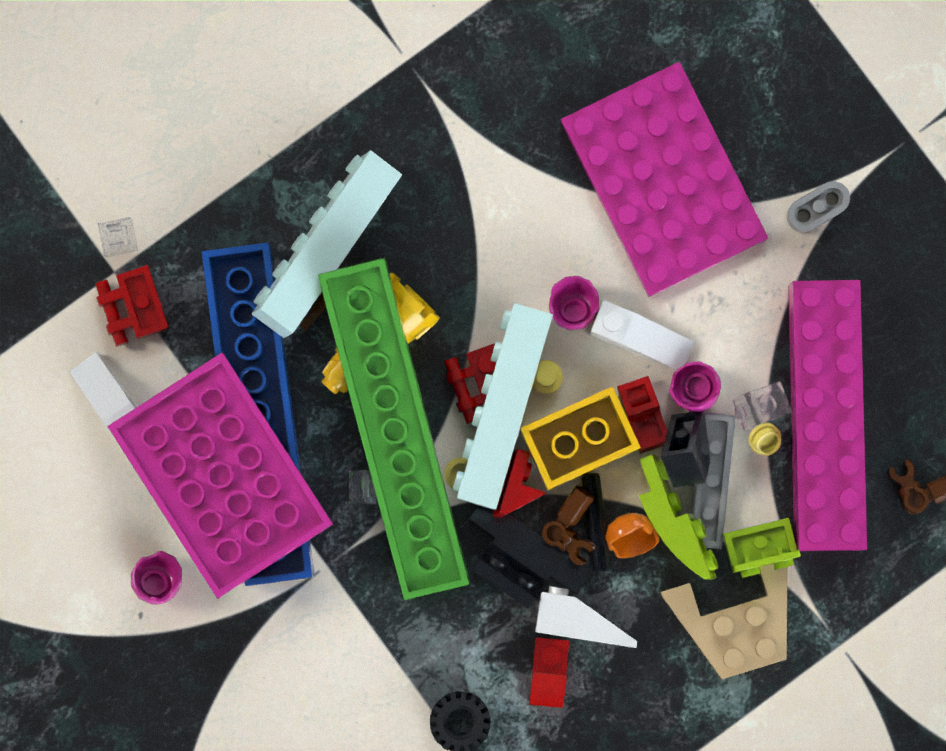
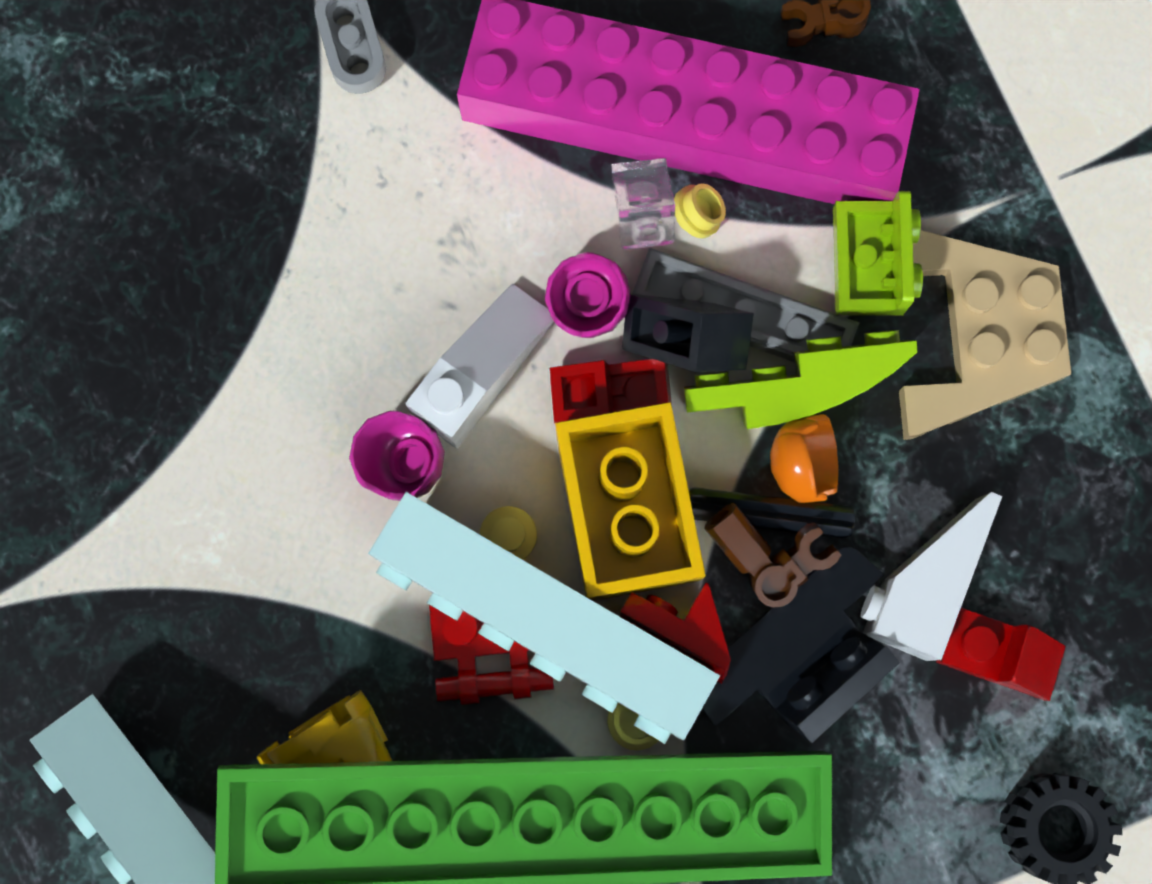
camera: 80 degrees left, 5 degrees down
(664, 179) = (235, 266): dark pink plate -> none

